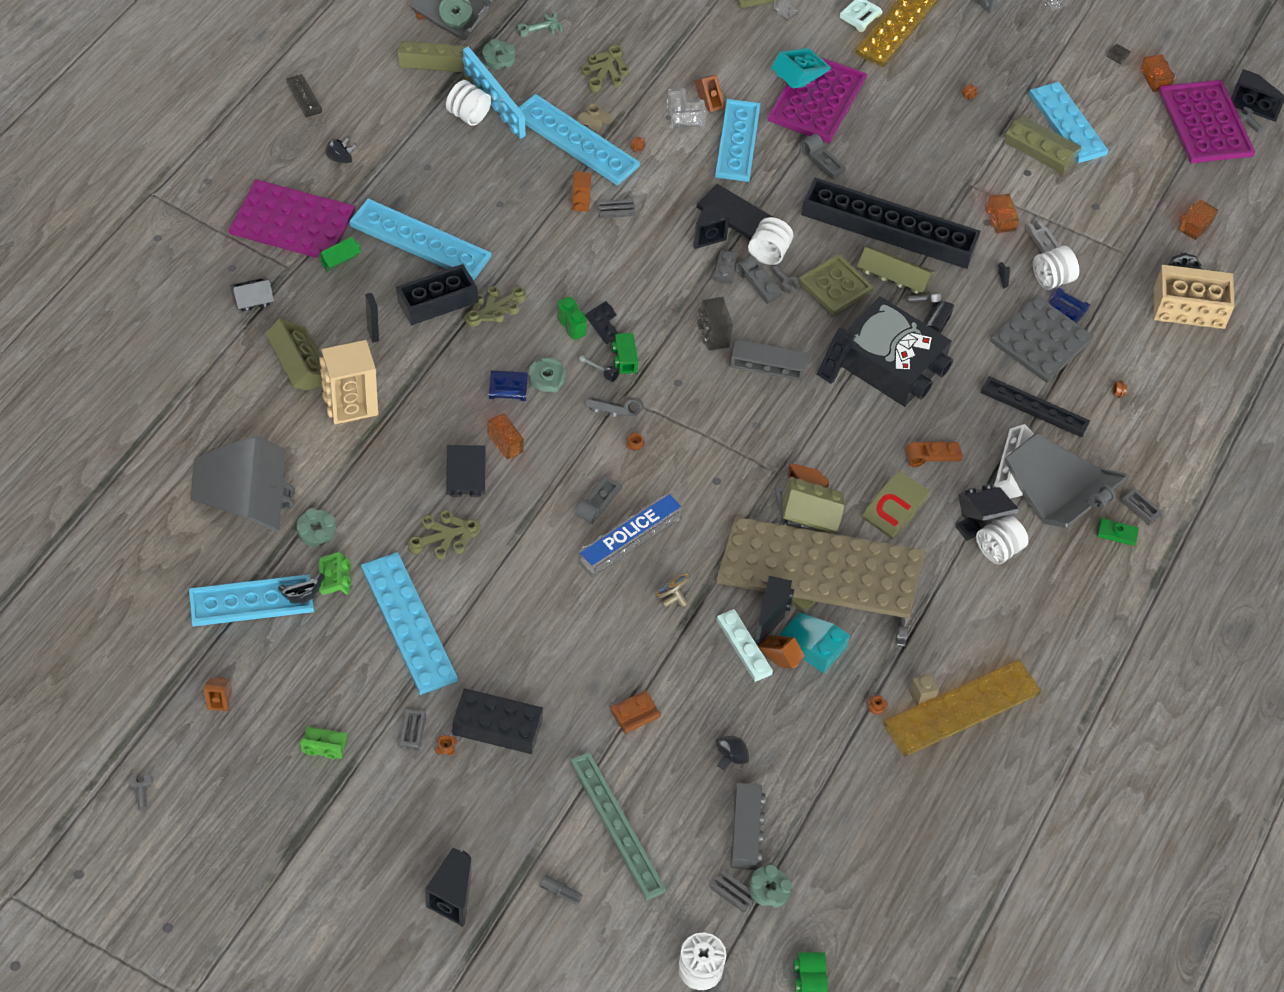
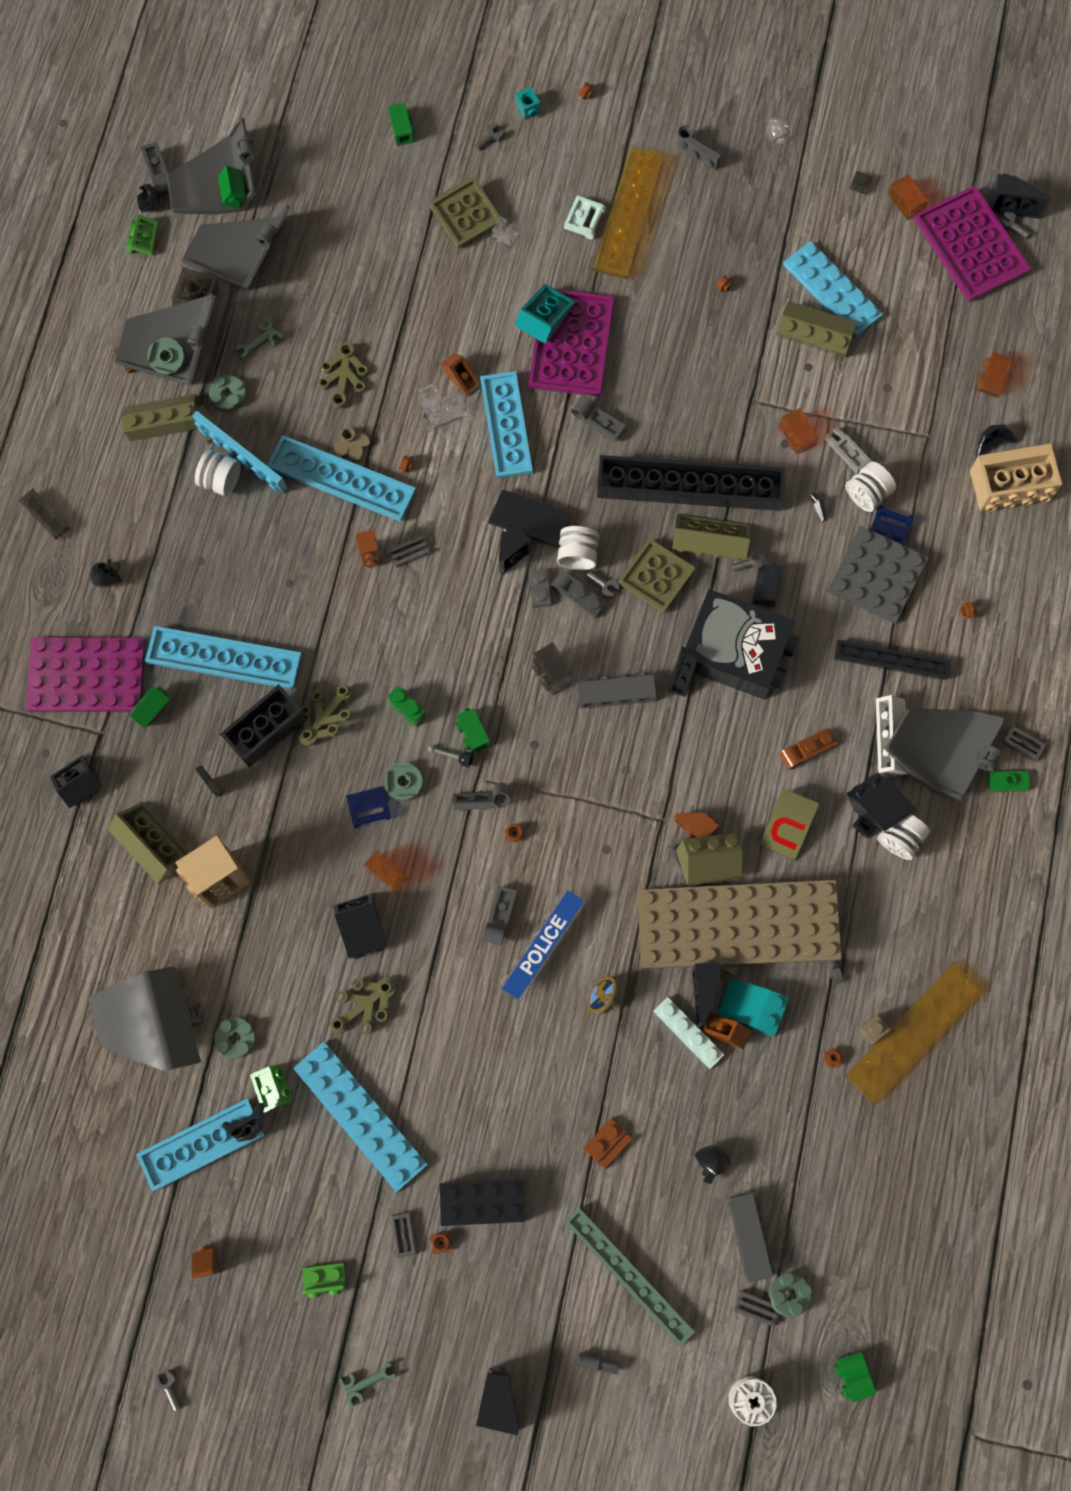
camera: 10 degrees left, 20 degrees up
(316, 841) = (352, 1389): none -> sand green bar
(599, 319) = (435, 701): black plate -> none

